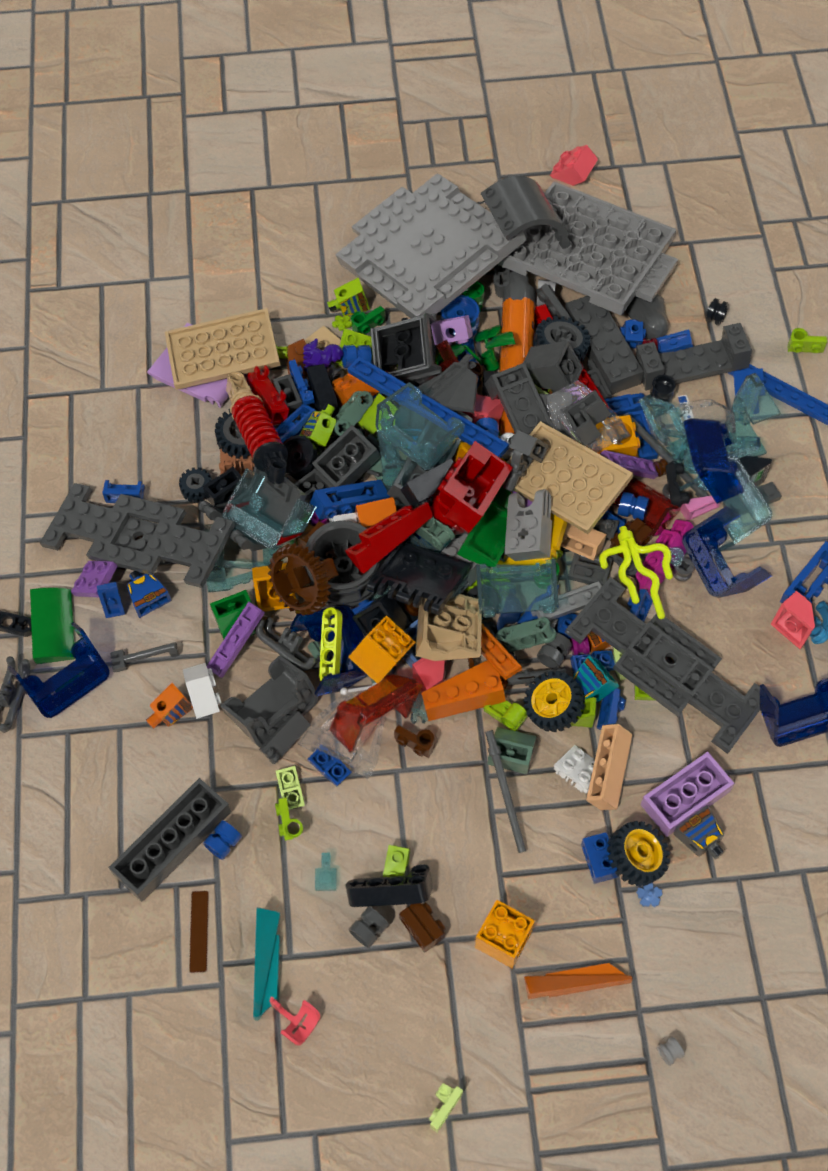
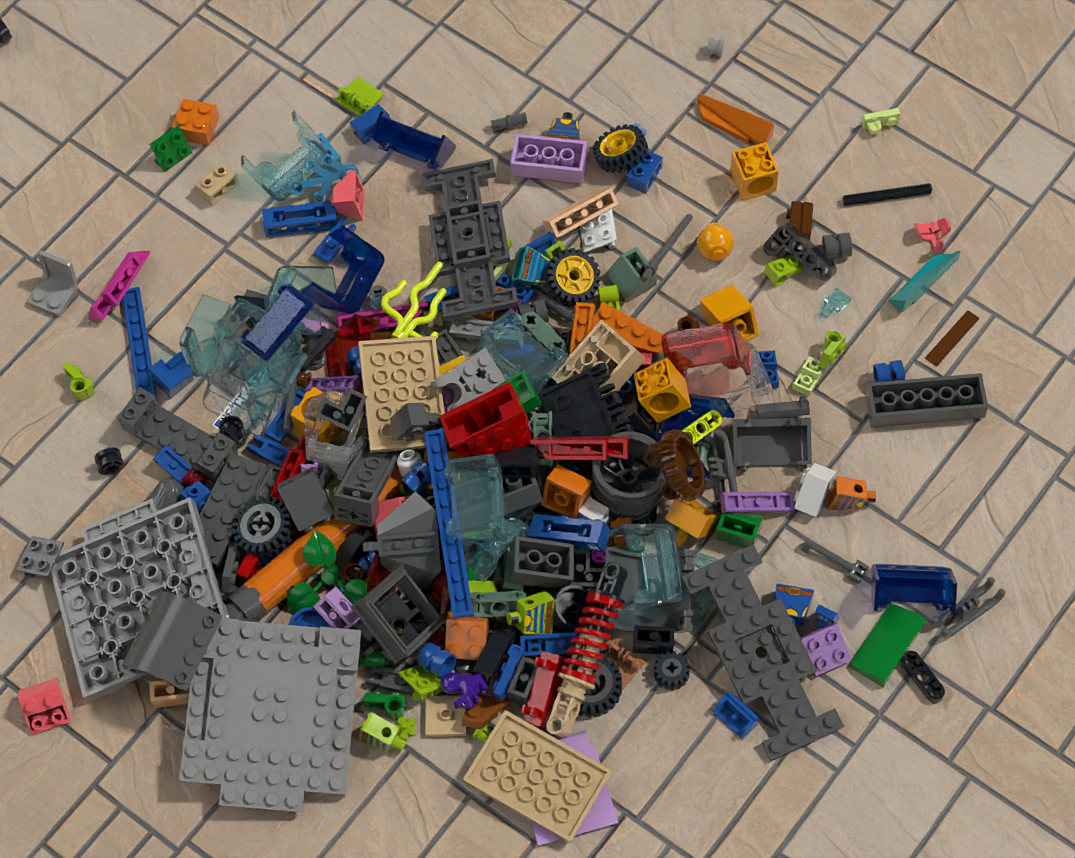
camera: 135 degrees left, 0 degrees up
(371, 1030) = (887, 194): none -> black axle
(400, 780) = (730, 307): none -> light orange slope
(472, 834) = (715, 242): none -> light orange brick
(682, 228) = (39, 556): none -> dark grey hinge
(760, 806) = (509, 121): none -> dark grey pin
(769, 587) = (329, 247): none -> blue hinge

